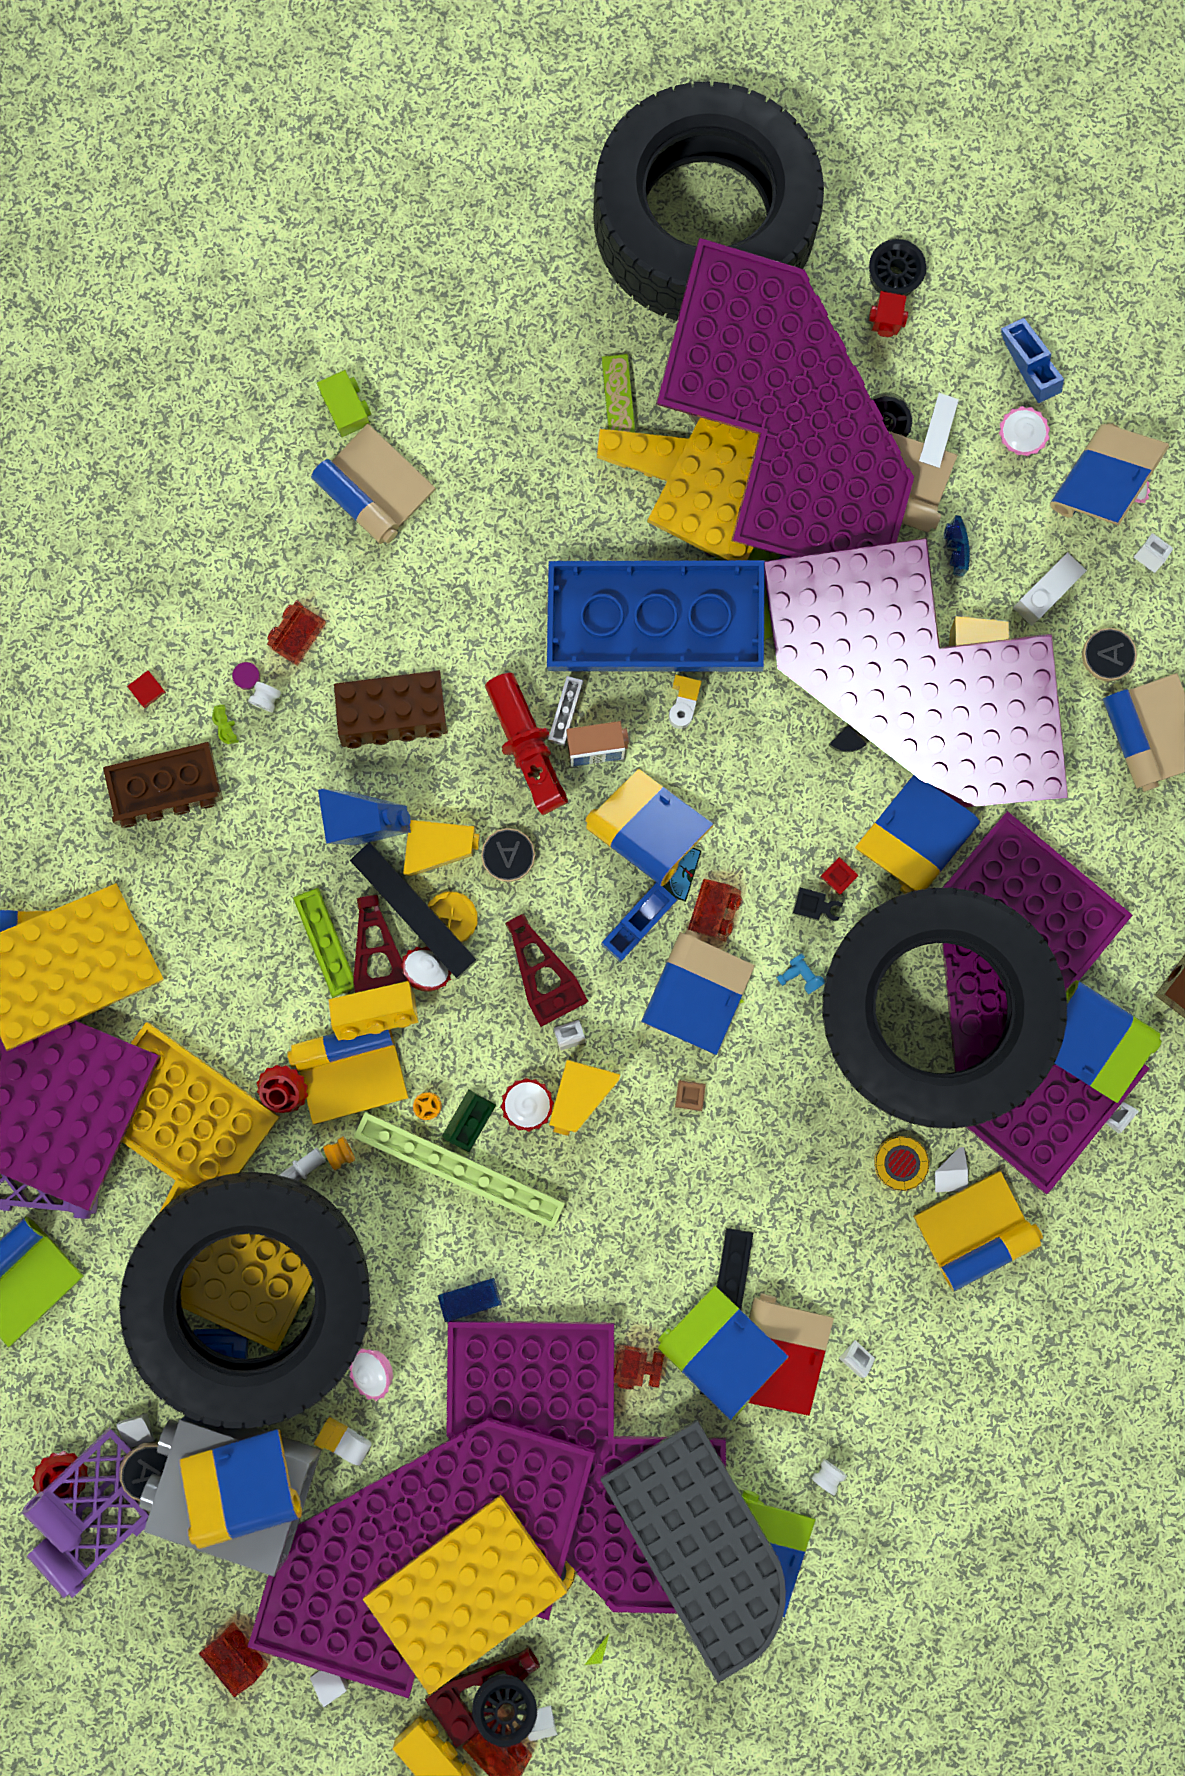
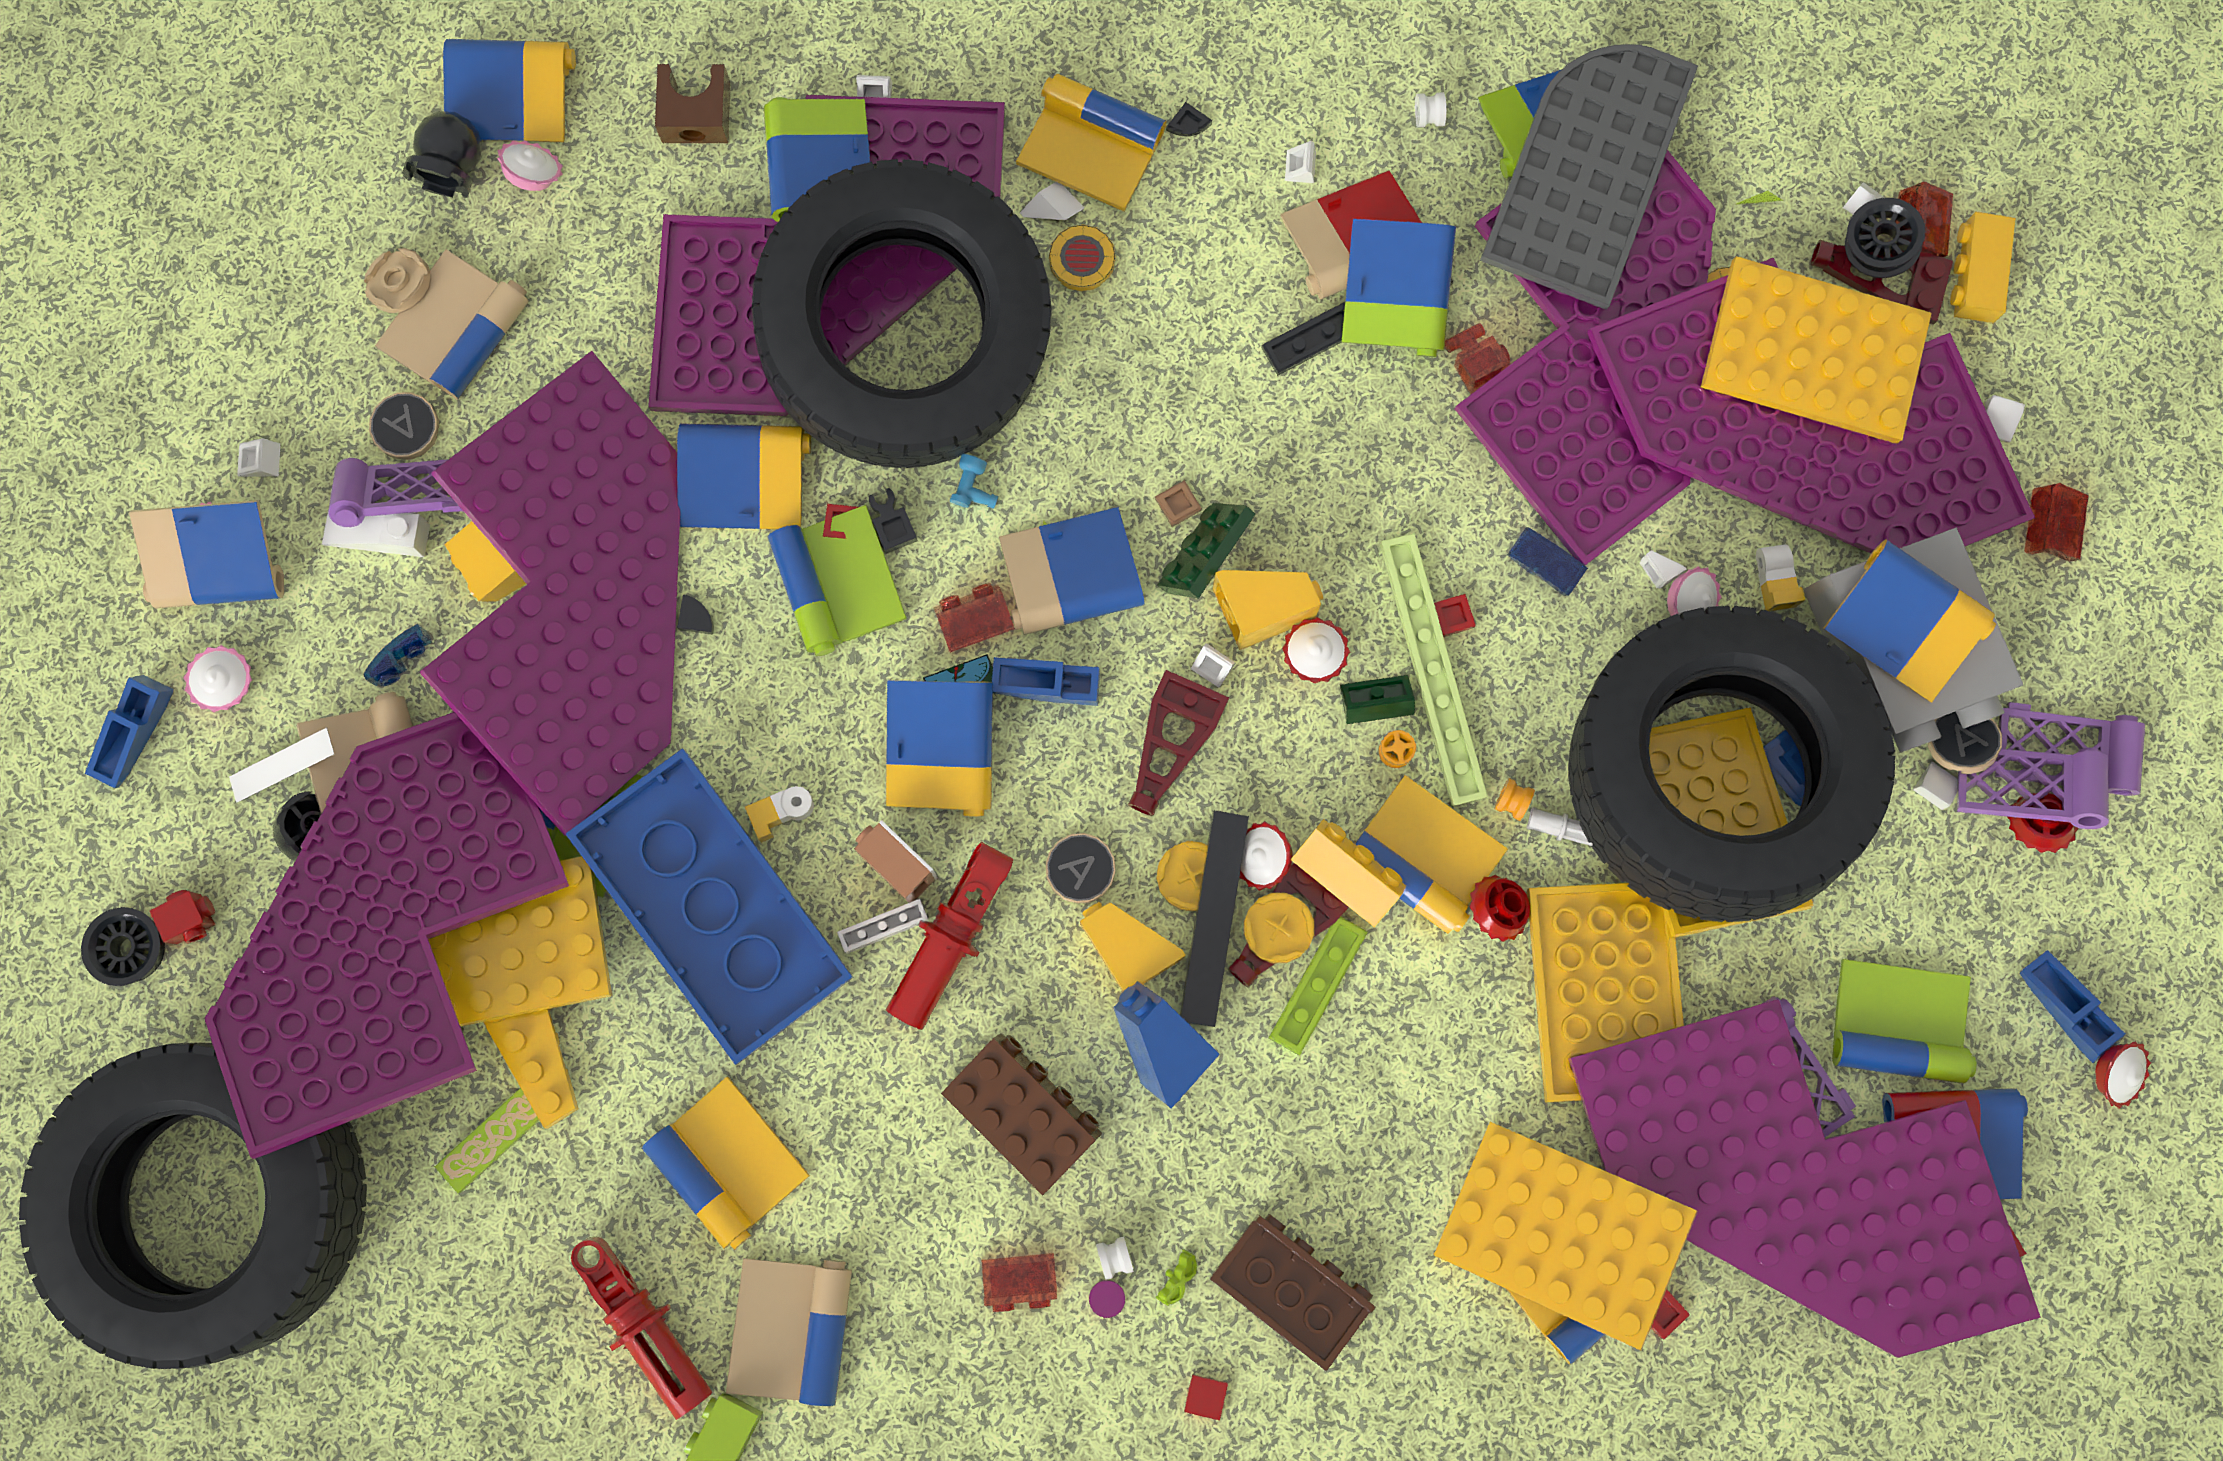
camera: 125 degrees left, 5 degrees down
(376, 944) = (1278, 928): none -> yellow tile
(406, 1368) = (1661, 569): none -> white slope
(442, 401) = (630, 1313): none -> red piece
(483, 1212) = (1454, 615): none -> red tile
(498, 517) = (726, 1163): none -> yellow door
(644, 1085) = (1205, 549): none -> dark green plate
(802, 842) = (836, 584): none -> lime door
(943, 1308) = (1188, 121): none -> black tile
(1089, 597) = (358, 488): none -> medium lavender piece

